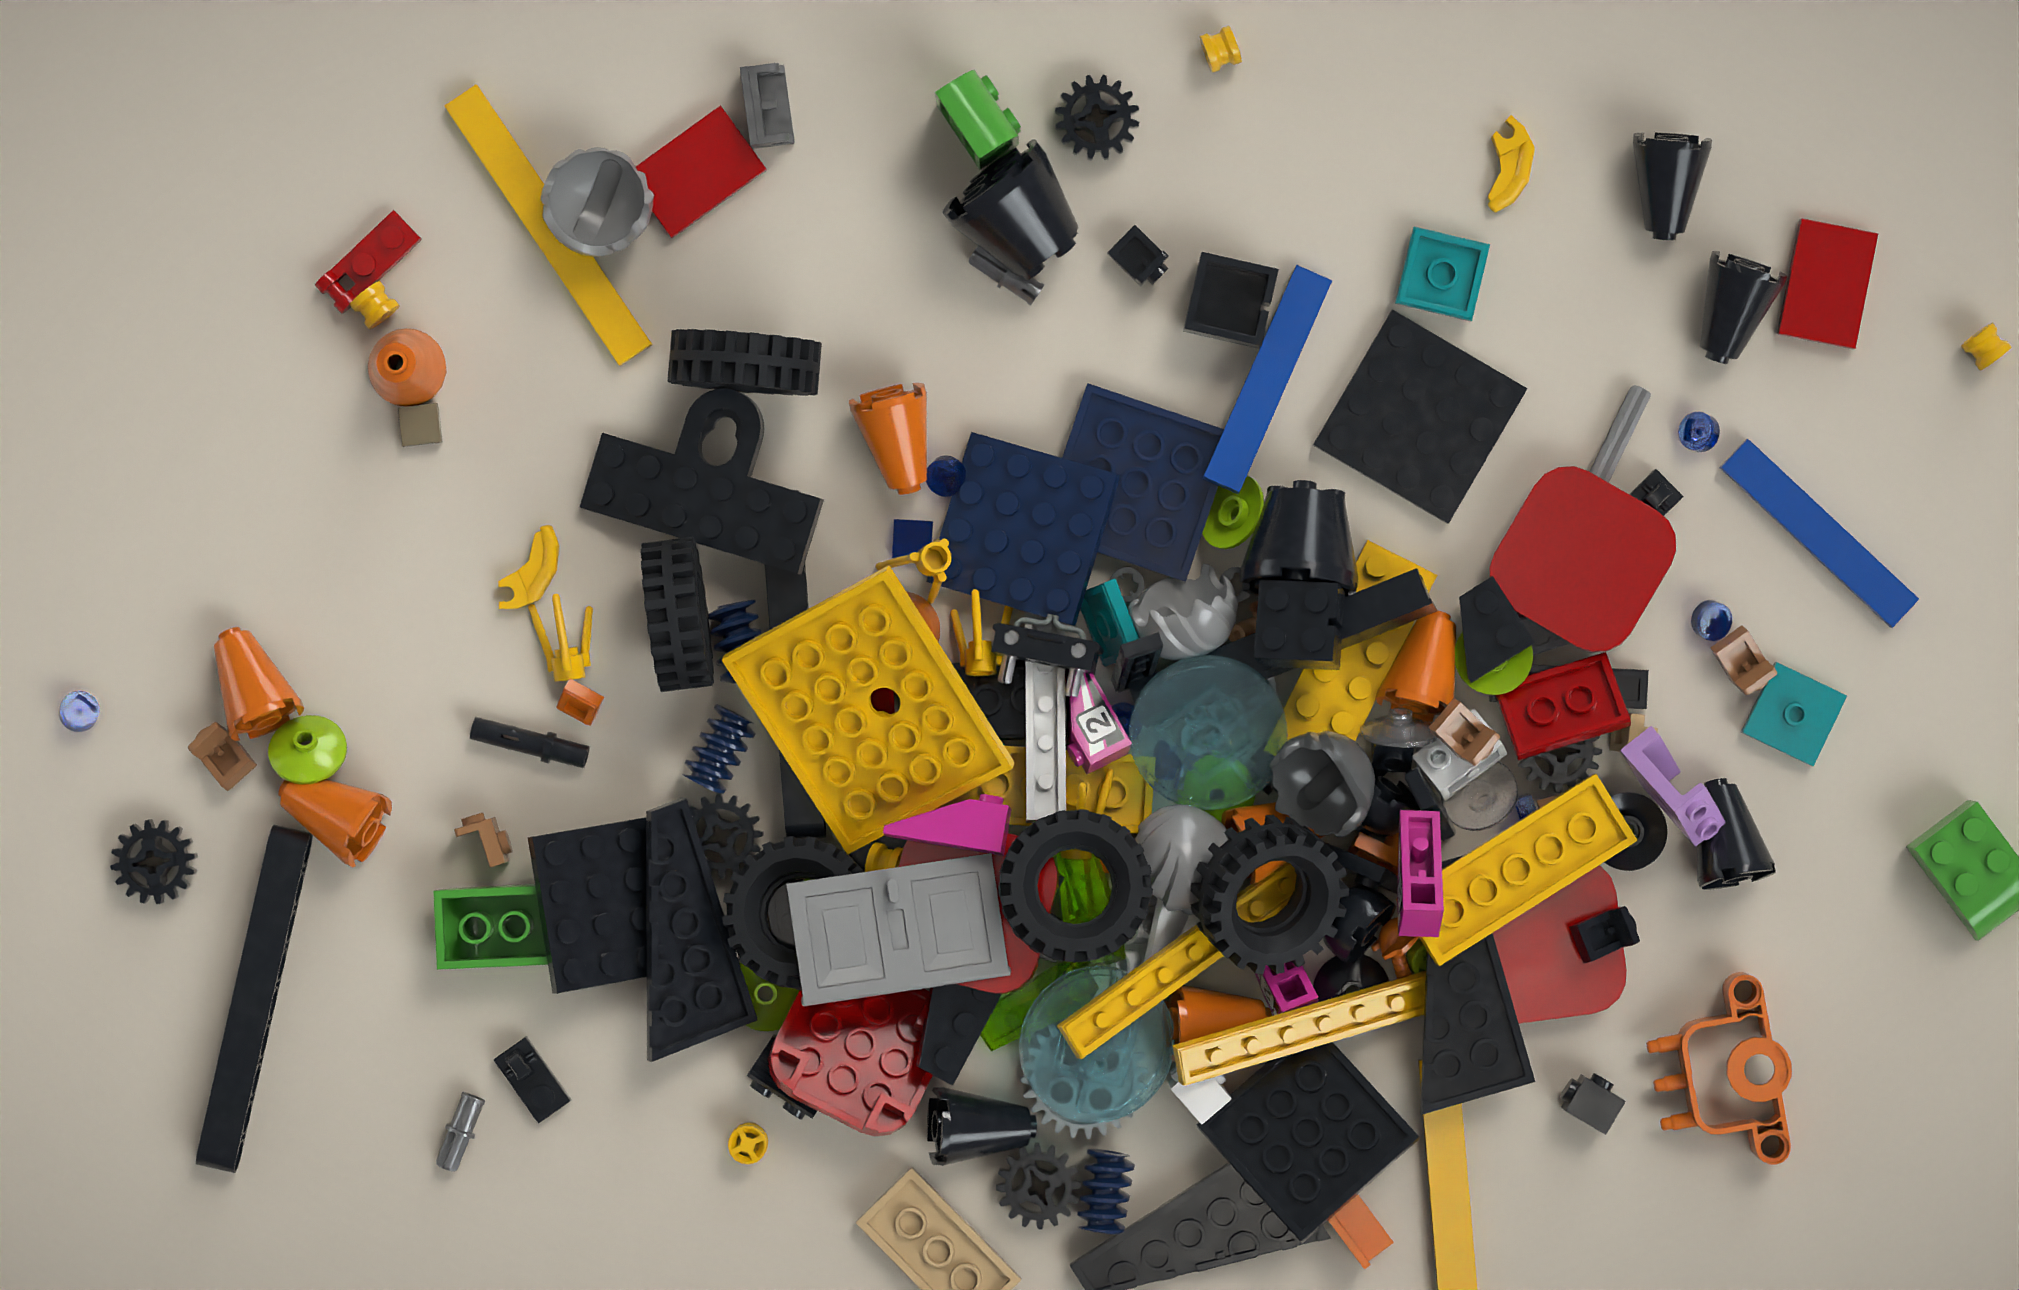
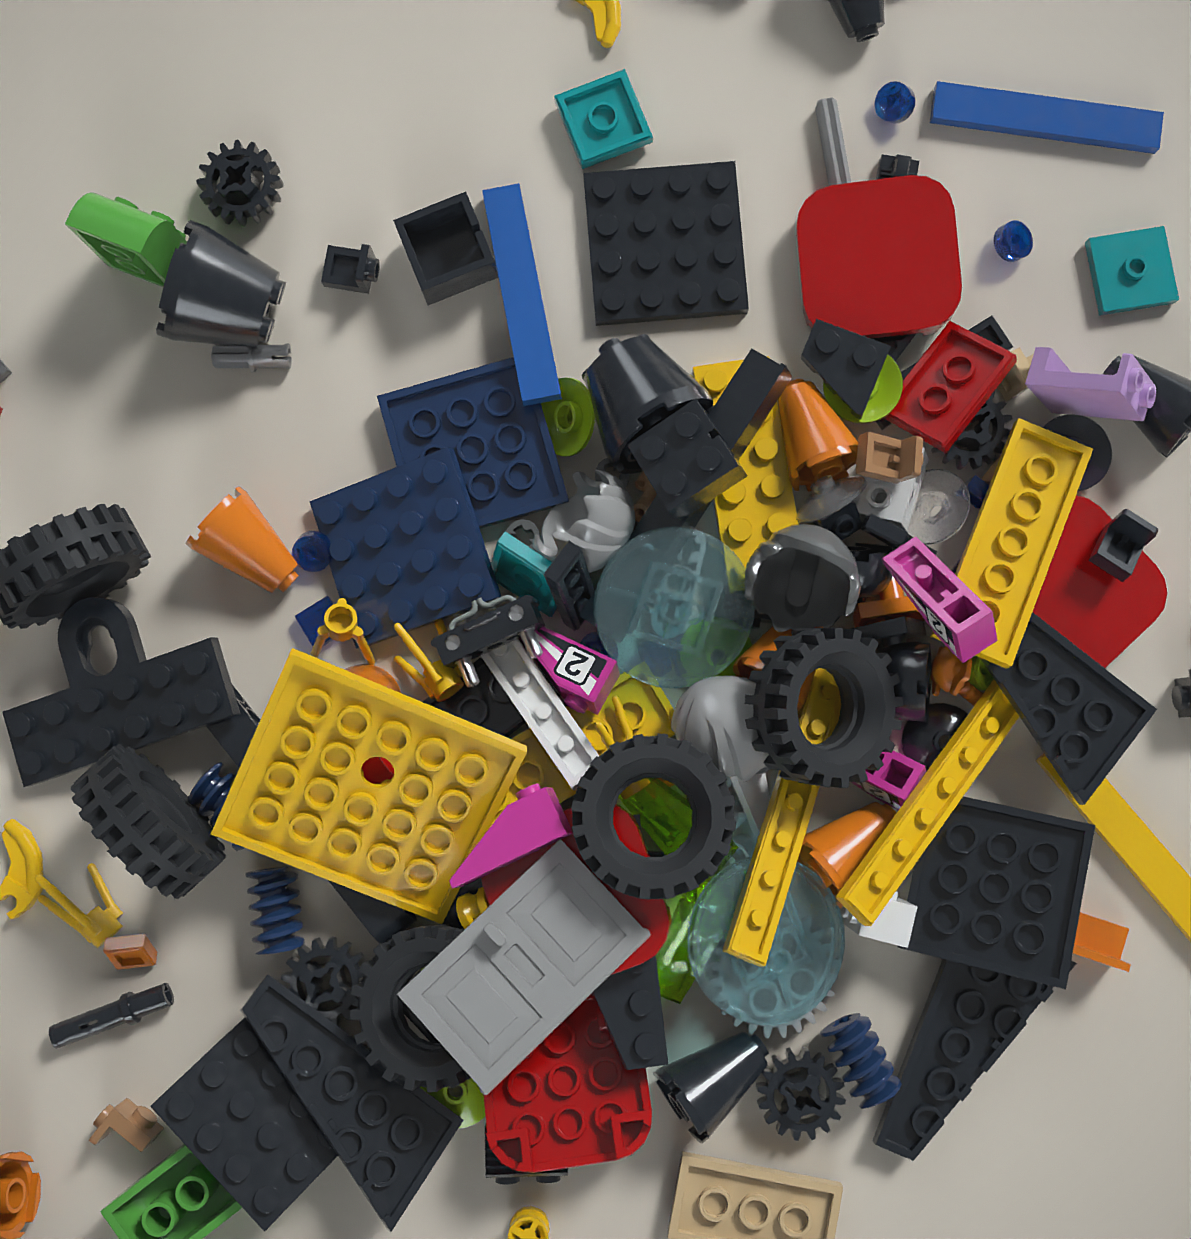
camera: 30 degrees left, 5 degrees down
(1220, 49) = (303, 64): yellow wheel -> none
(1743, 661) = (1064, 255): medium nougat bracket -> none

